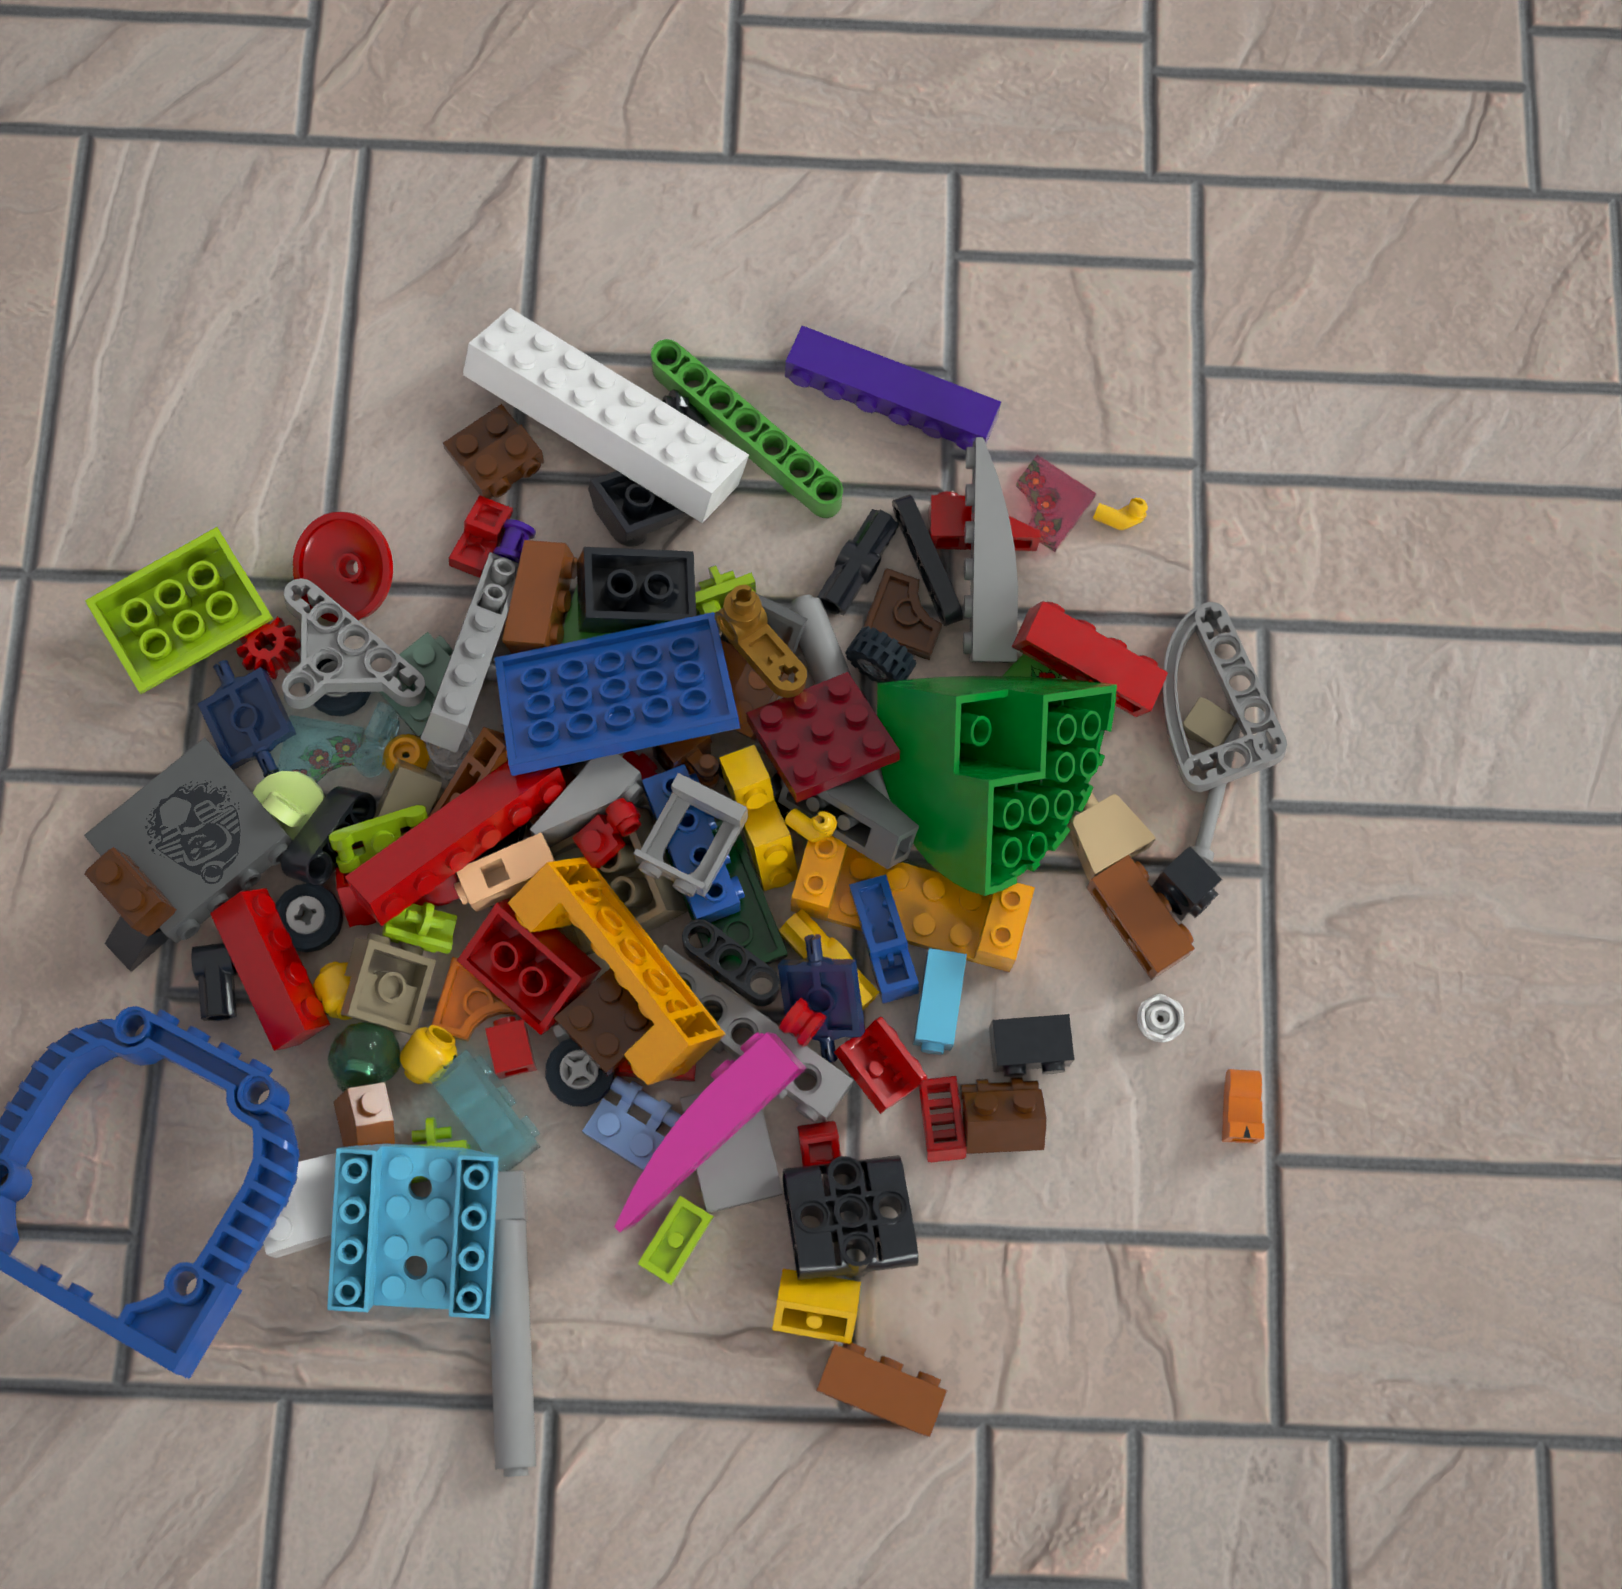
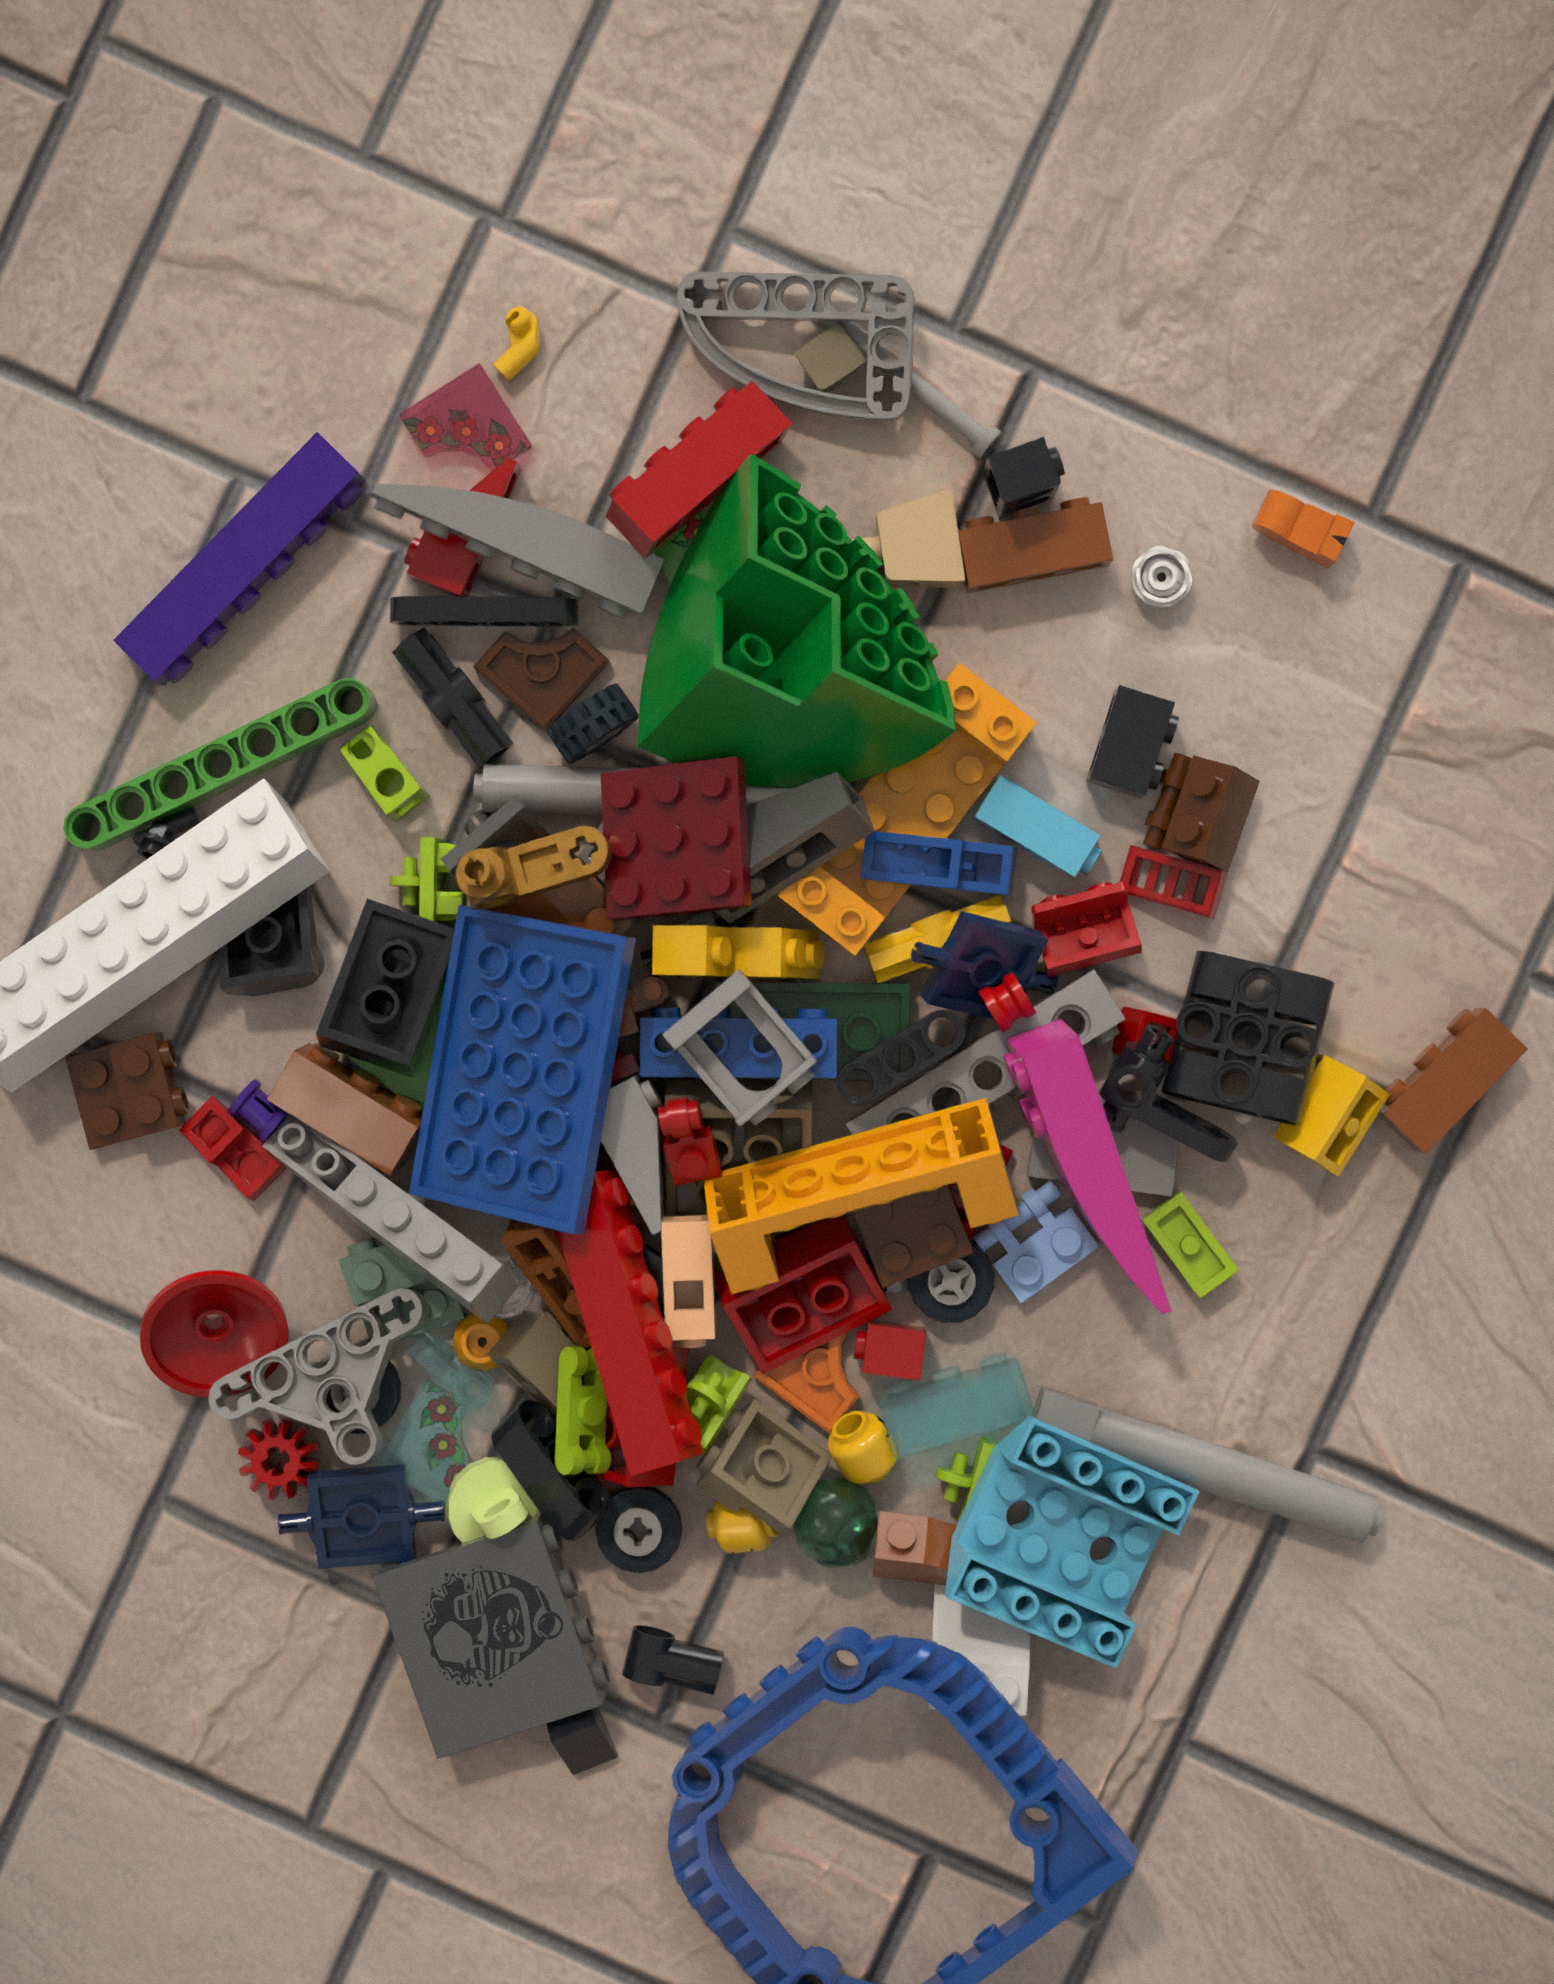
camera: 65 degrees left, 15 degrees up
(130, 891) = (538, 1730): reddish brown brick -> none
(178, 610) = (195, 1551): lime slope -> none
(270, 968) = (688, 1595): red brick -> none
(766, 1166) = (1148, 1062): none -> black piece
(784, 537) = (384, 773): none -> lime leg
(812, 828) = (786, 897): yellow arm -> none

